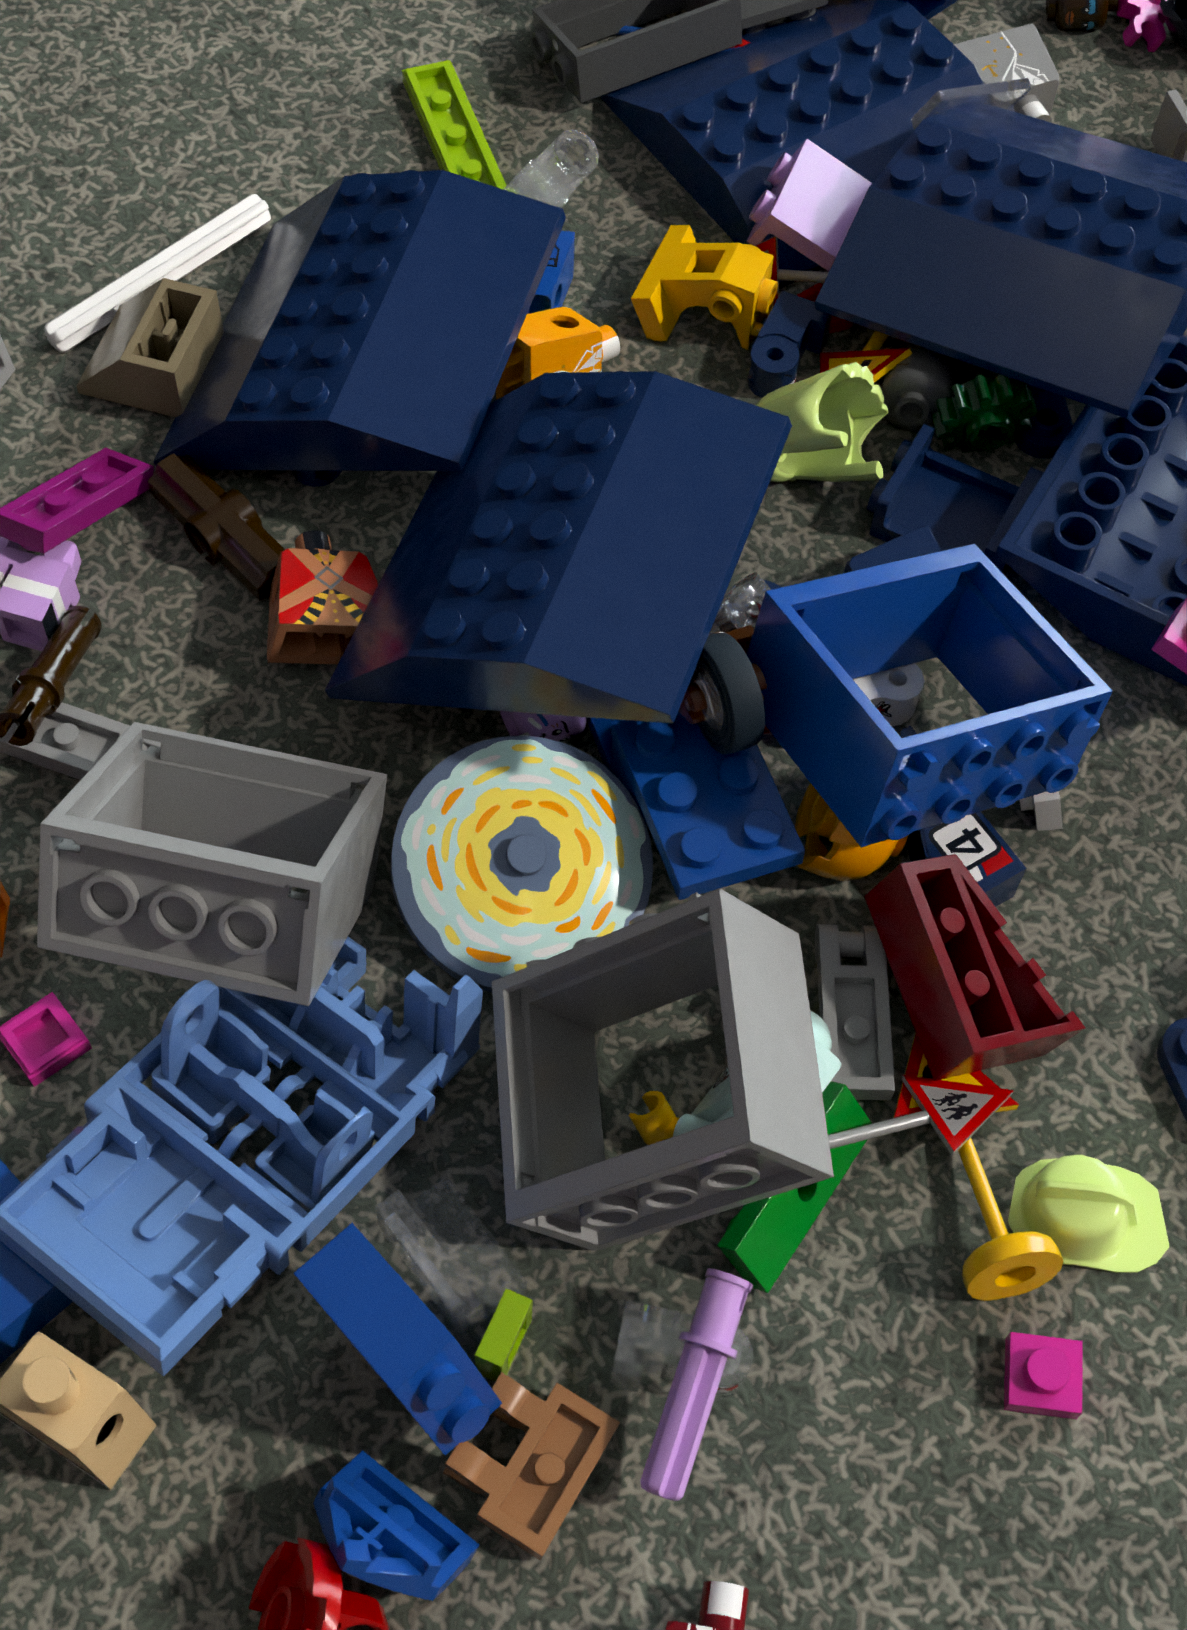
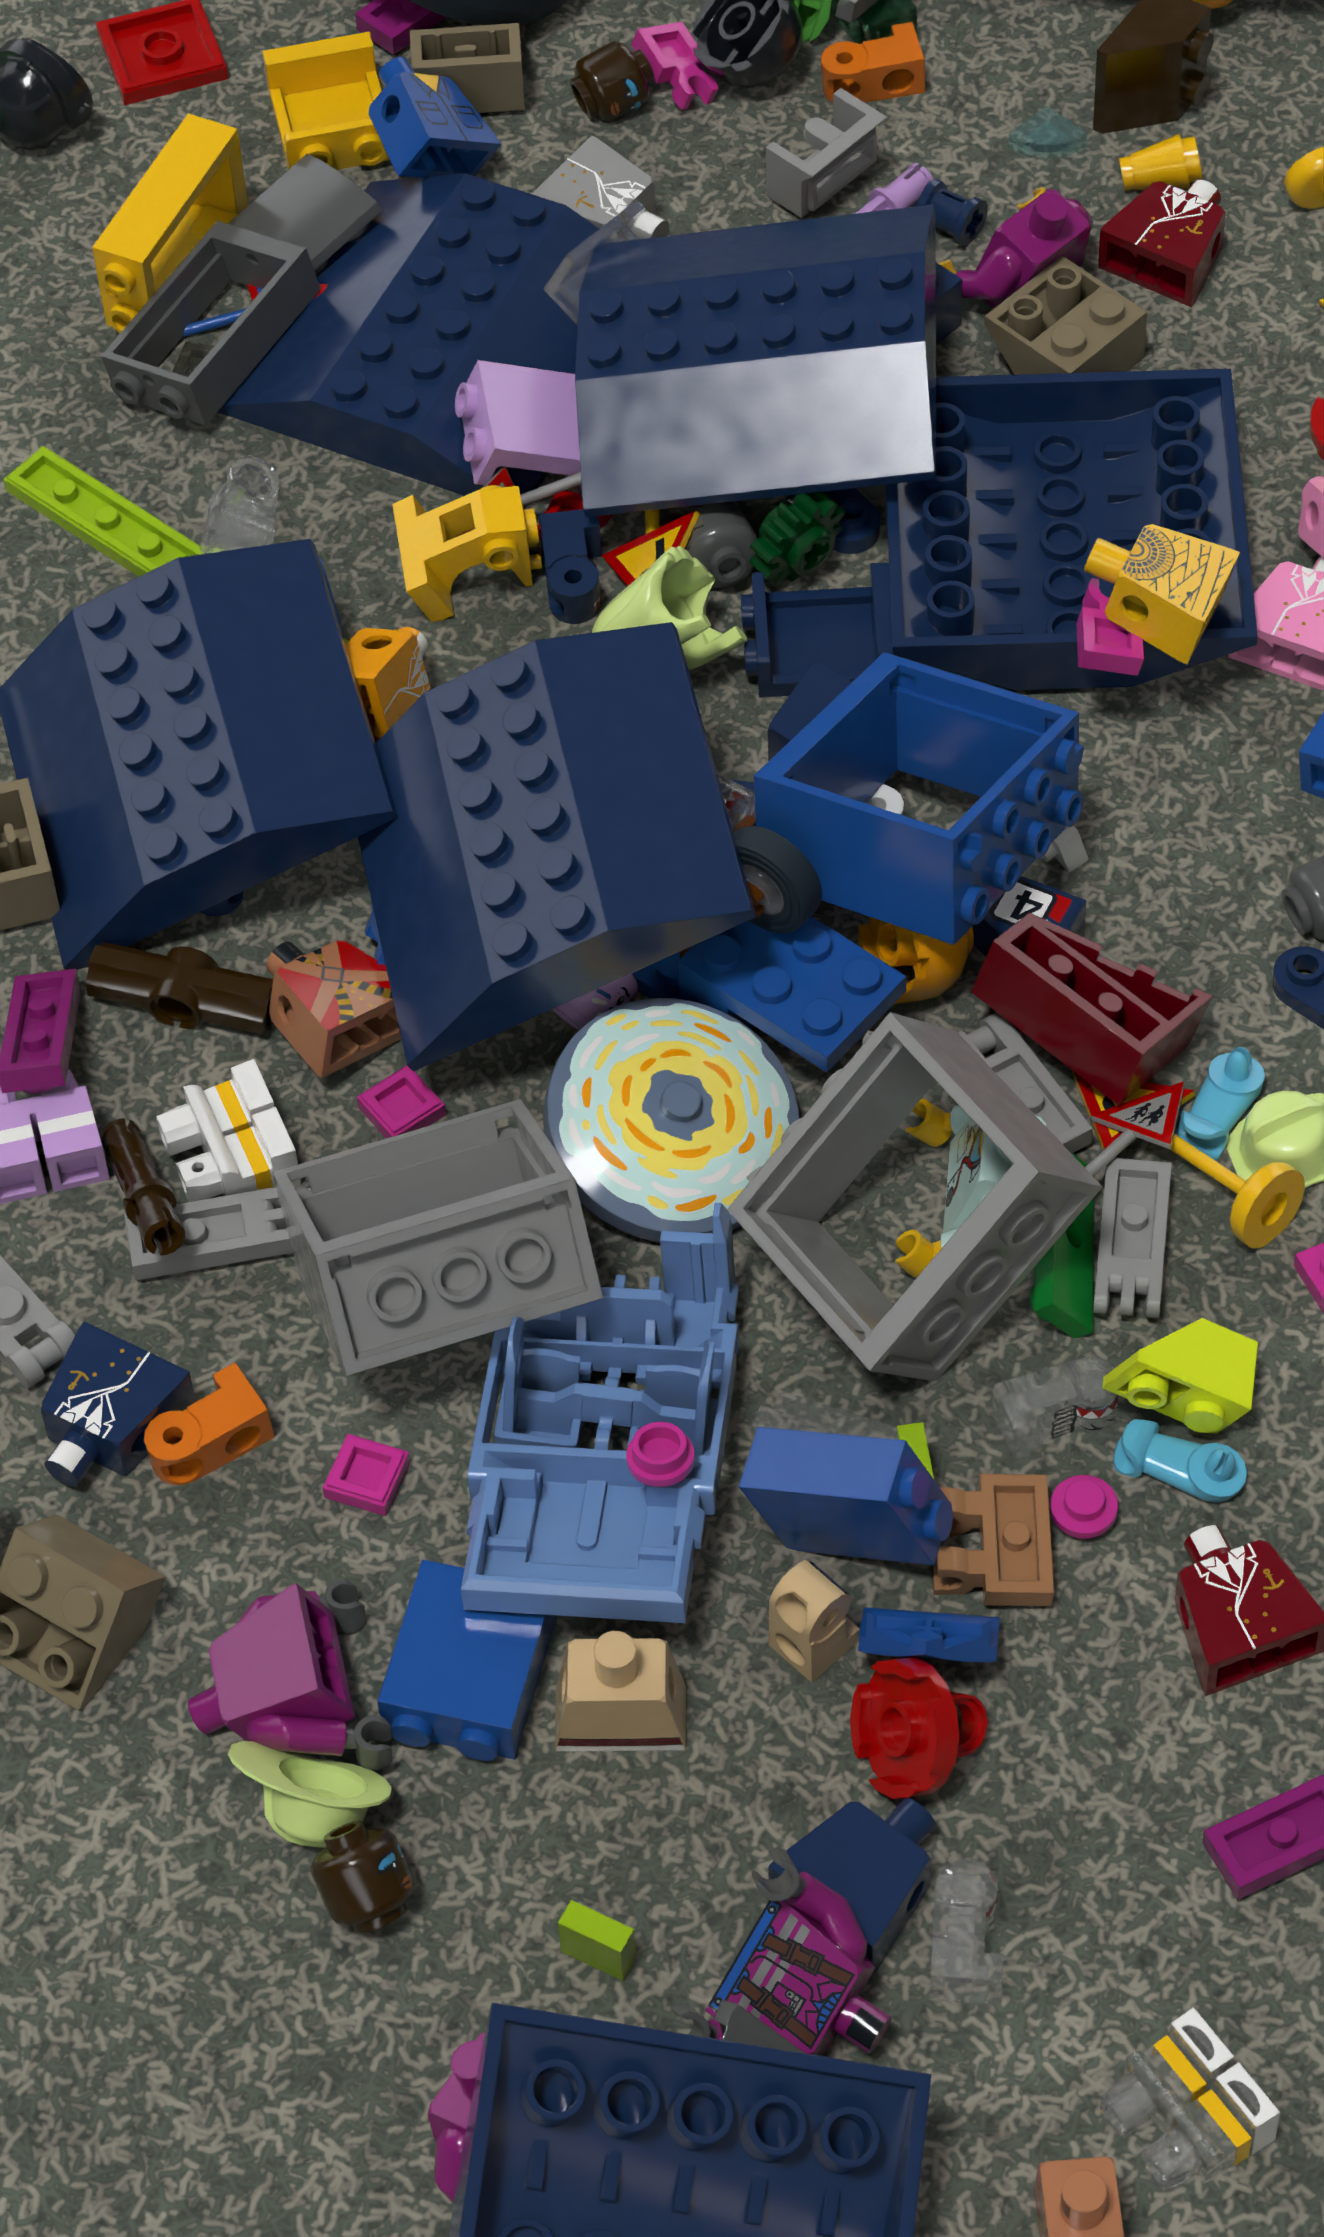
camera: 25 degrees left, 5 degrees down
(164, 673) = (237, 1132): none -> white hips
(249, 1195) = (660, 1455): none -> dark pink plate
(295, 1440) = (811, 1613): none -> tan leg
(320, 724) = (401, 1104): none -> dark pink tile
(622, 1476) = (1084, 1506): none -> dark pink plate
(695, 1384) = (1088, 1404): lavender axle -> none
(773, 1499) = (1202, 1470): none -> medium azure piece
(824, 1405) = (1192, 1376): none -> neon yellow slope
(865, 1219) = (1133, 1234): none -> light grey hinge
(1044, 1127) = (1226, 1094): none -> medium azure piece

